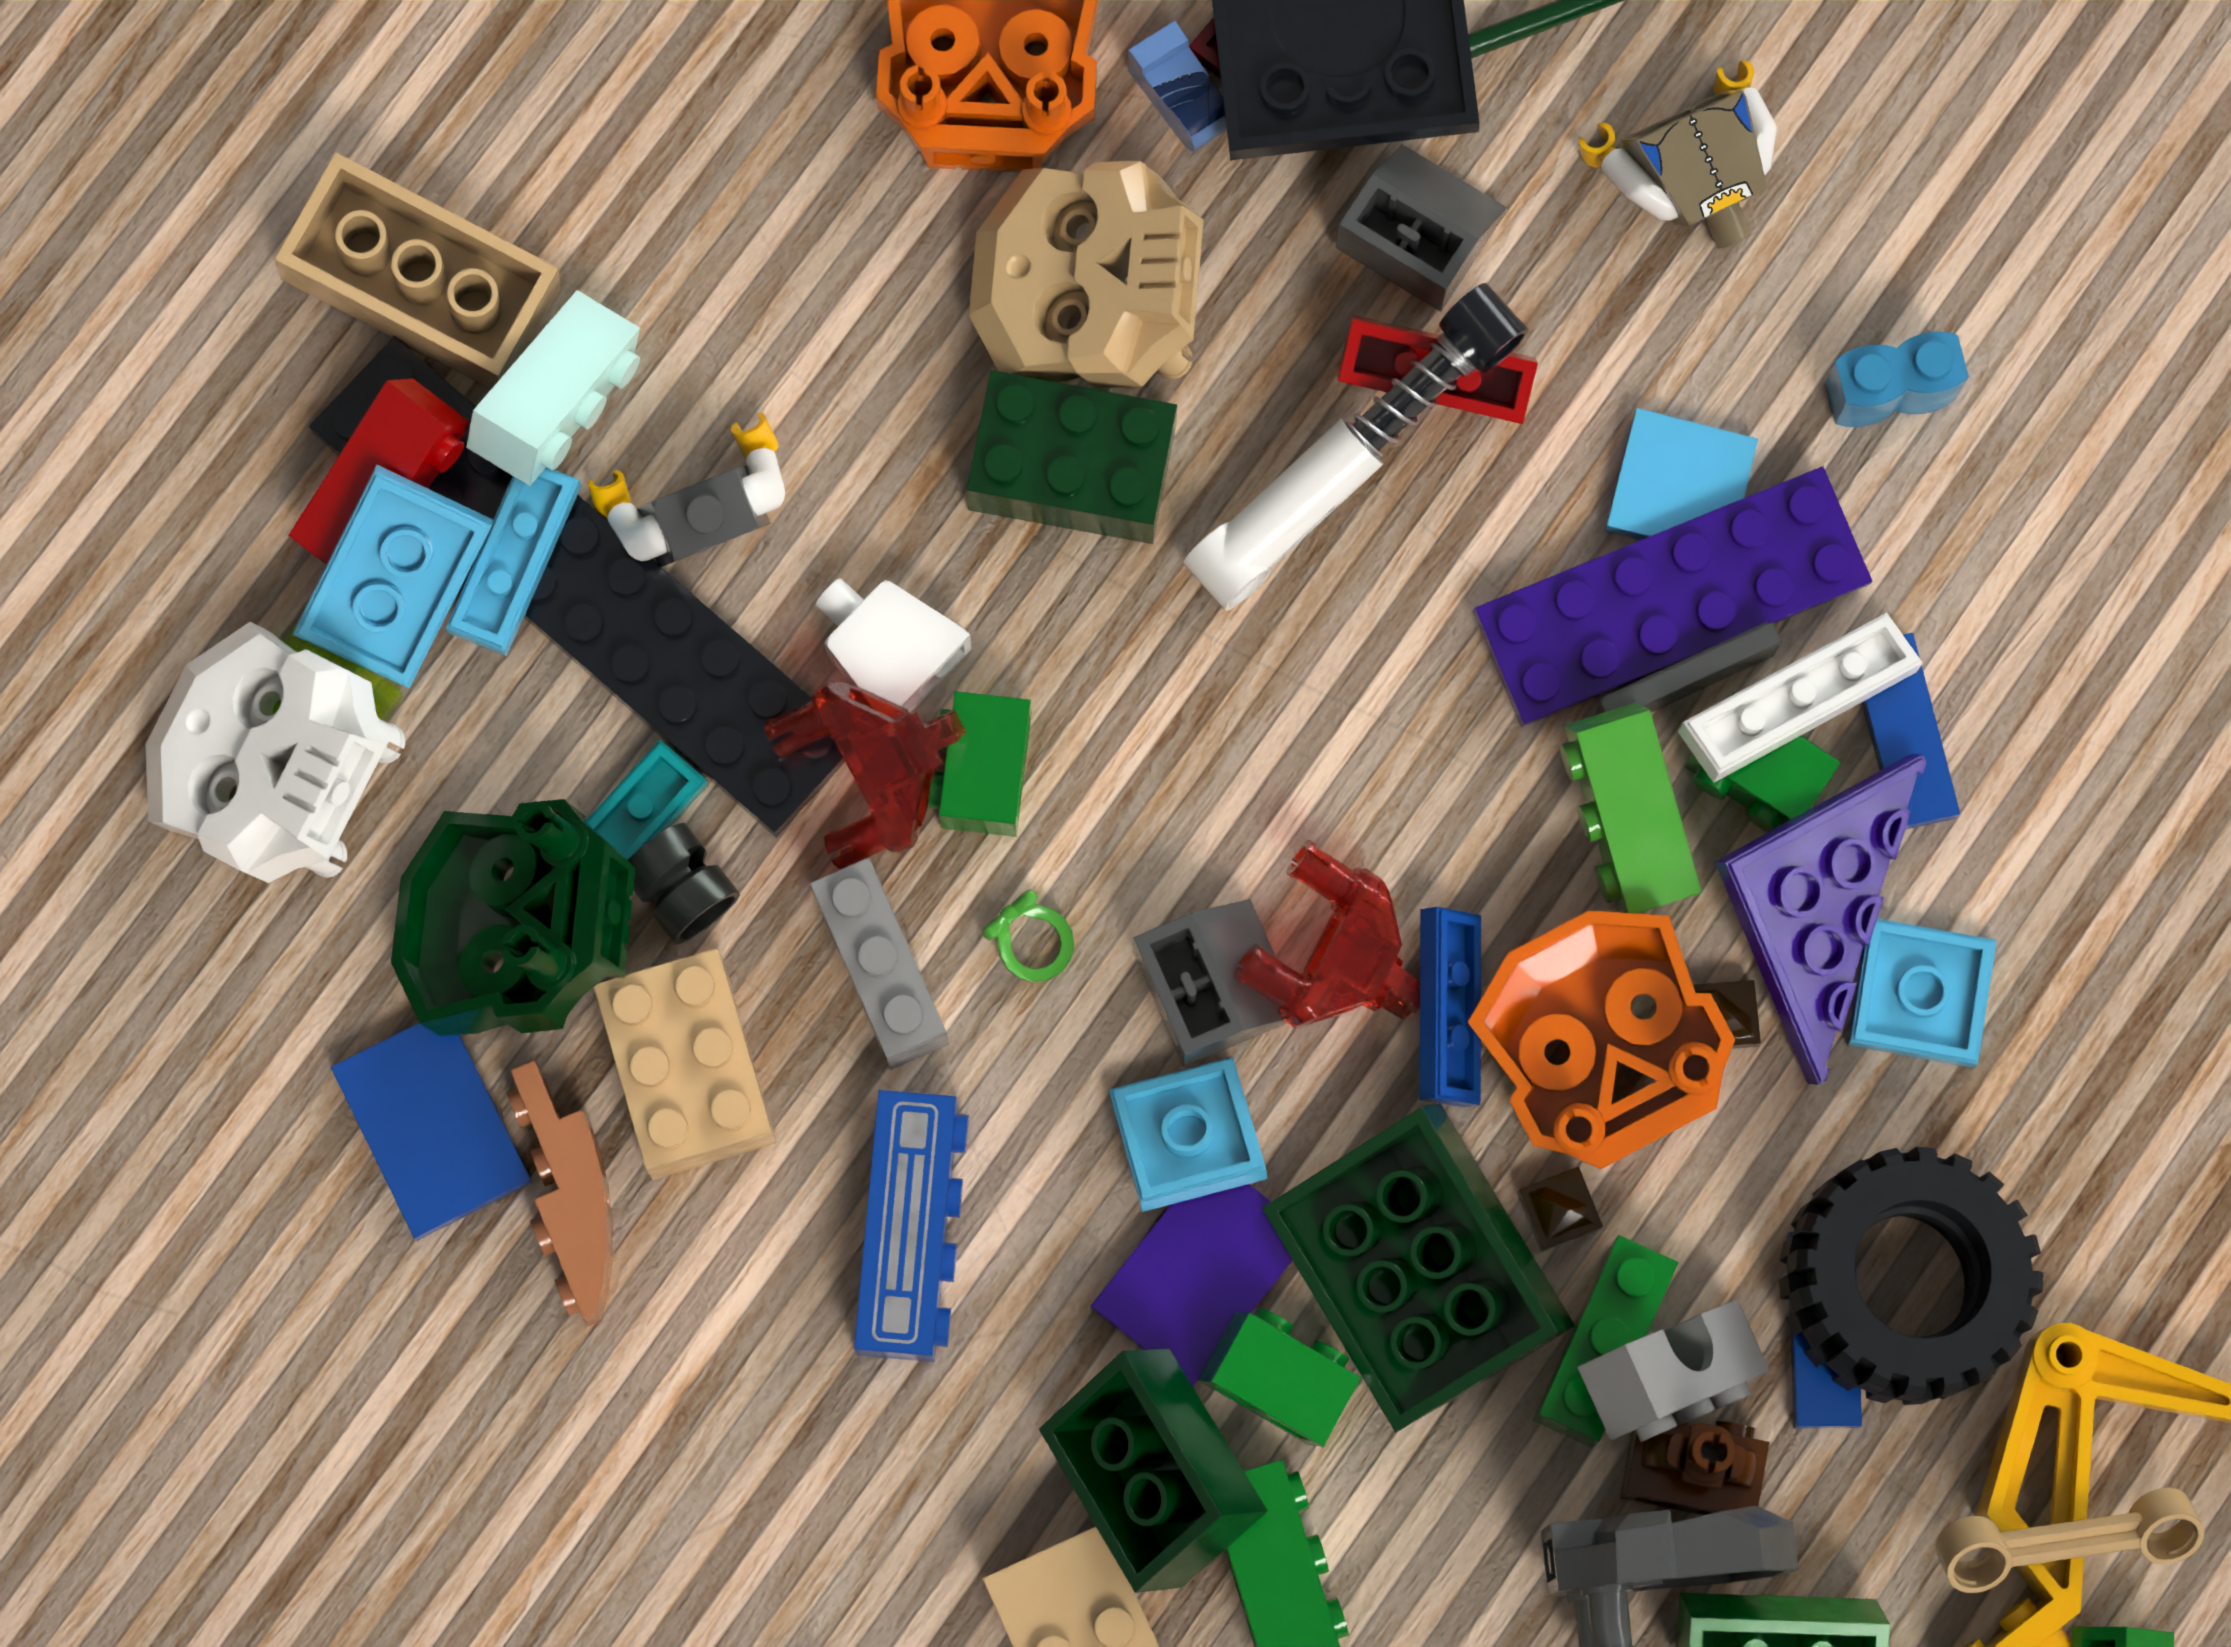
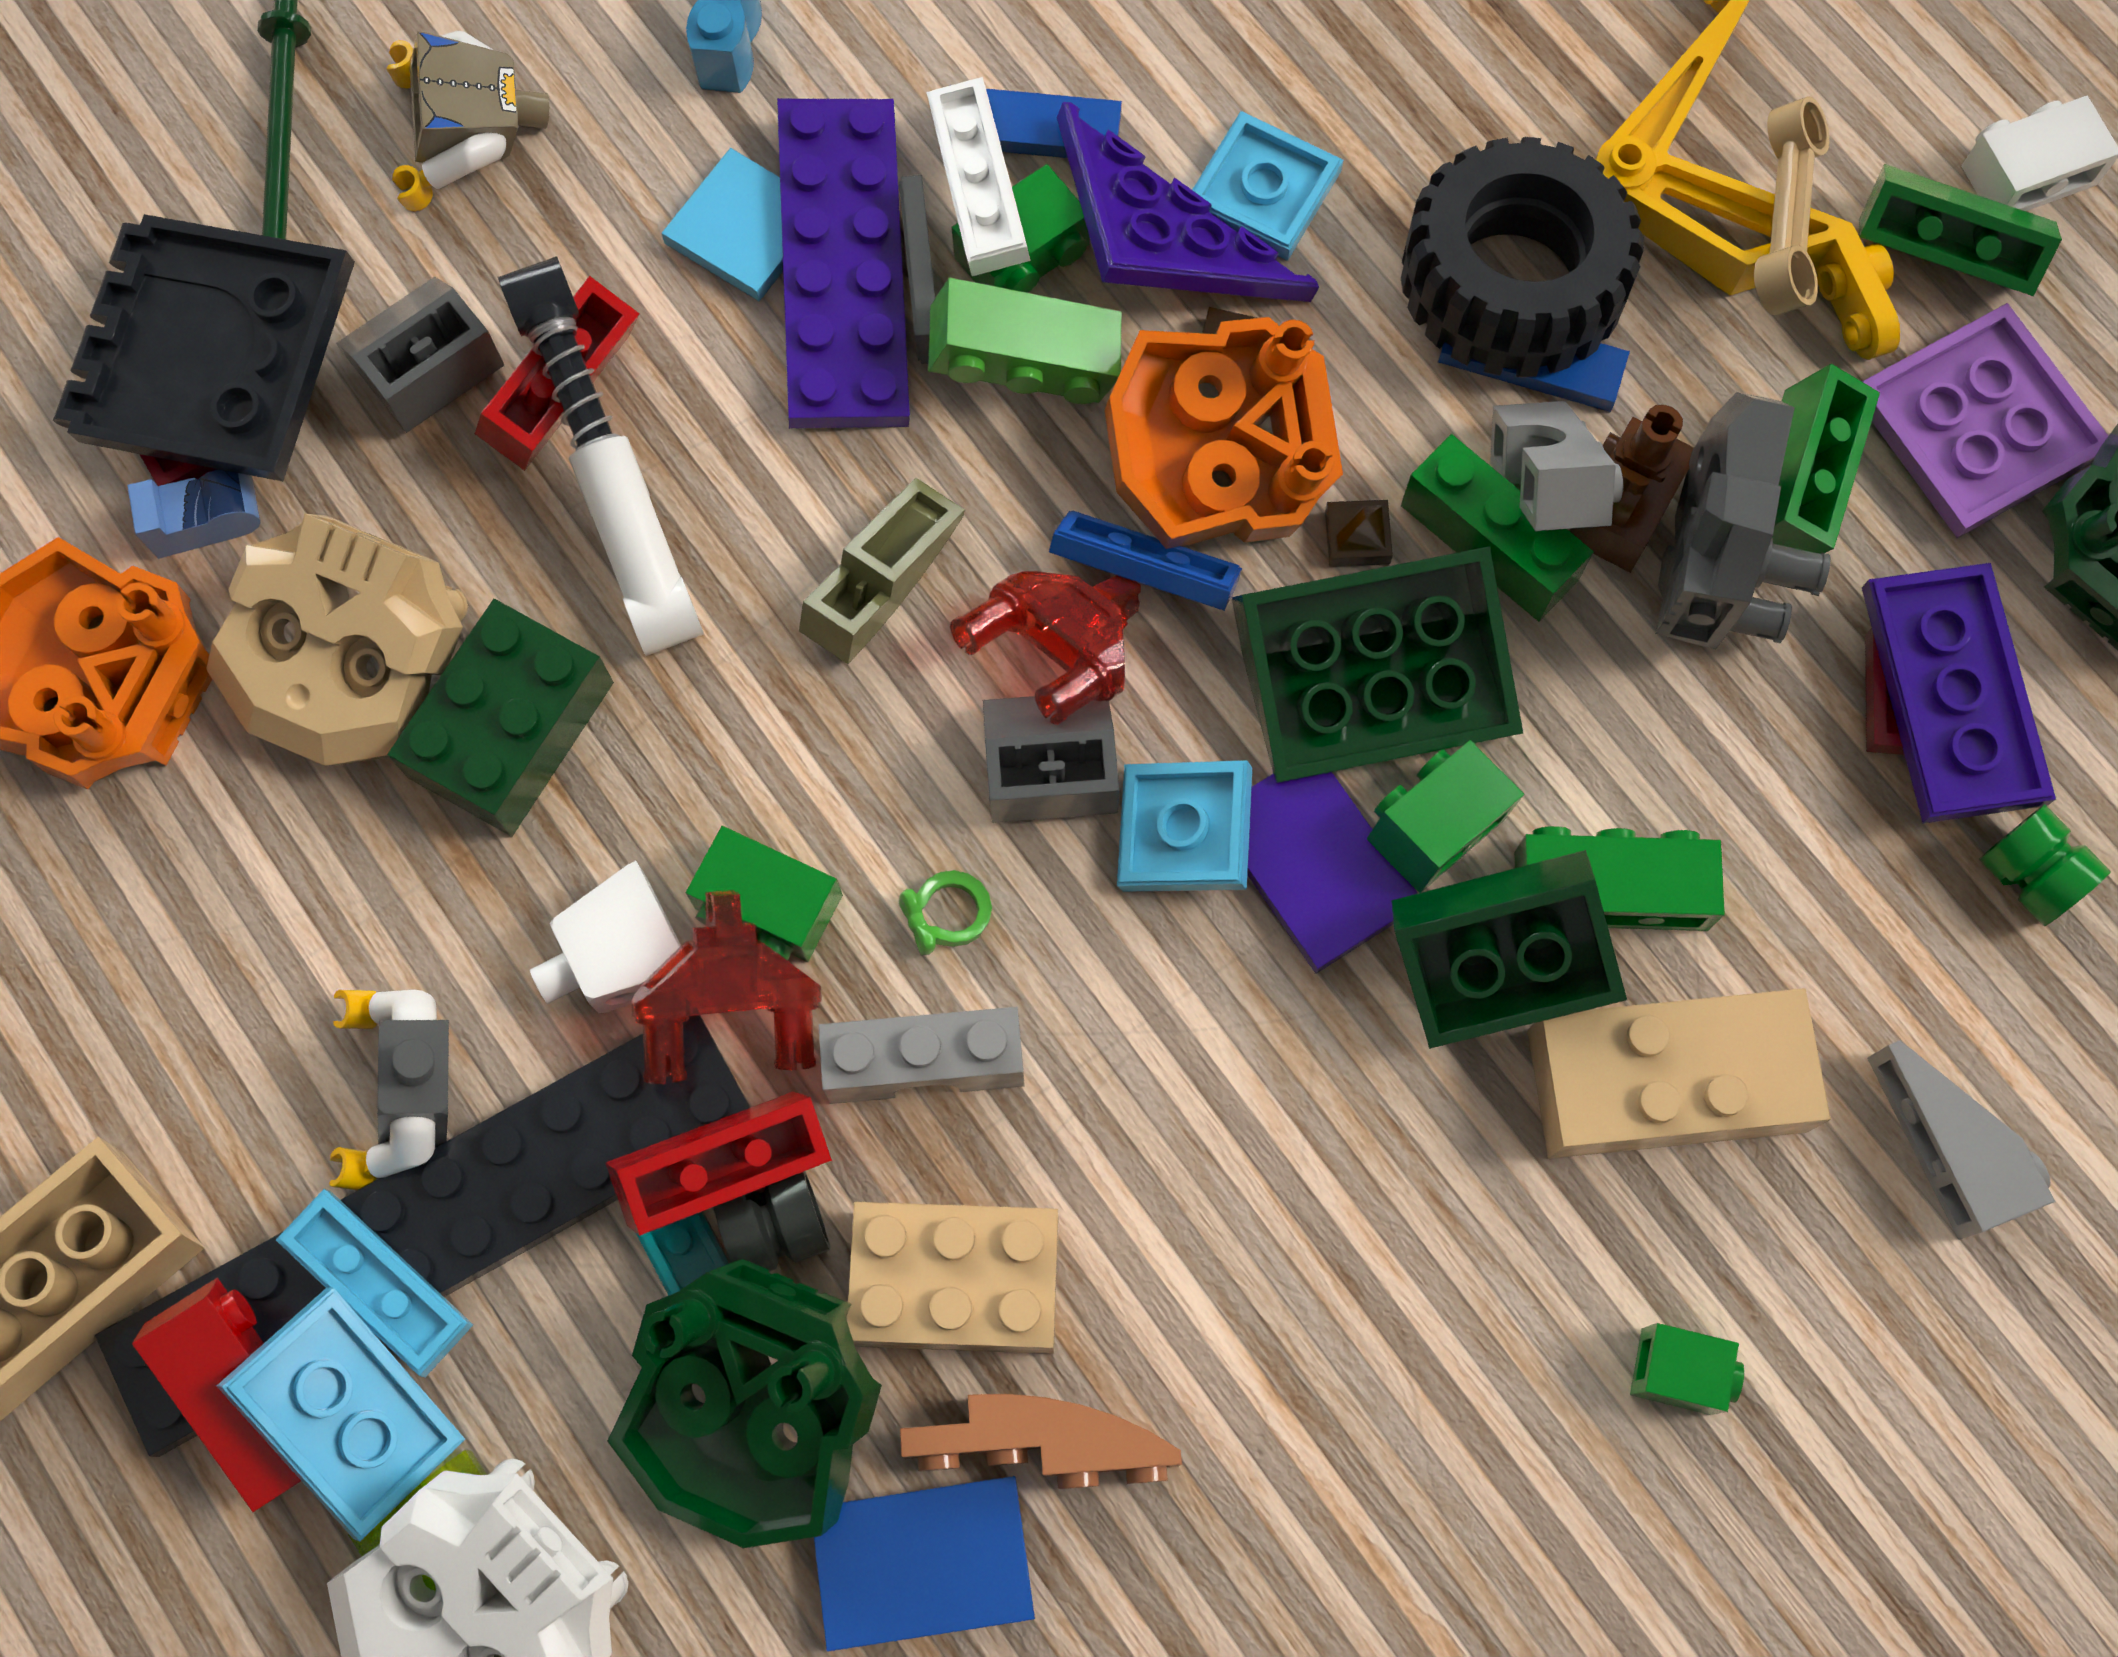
camera: 70 degrees left, 5 degrees down
(554, 389) = (221, 1183): light aqua brick -> none
(715, 815) = (718, 1162): none -> red brick
(908, 1226) = (1187, 1112): blue brick -> none
(1351, 754) = (879, 570): none -> olive slope

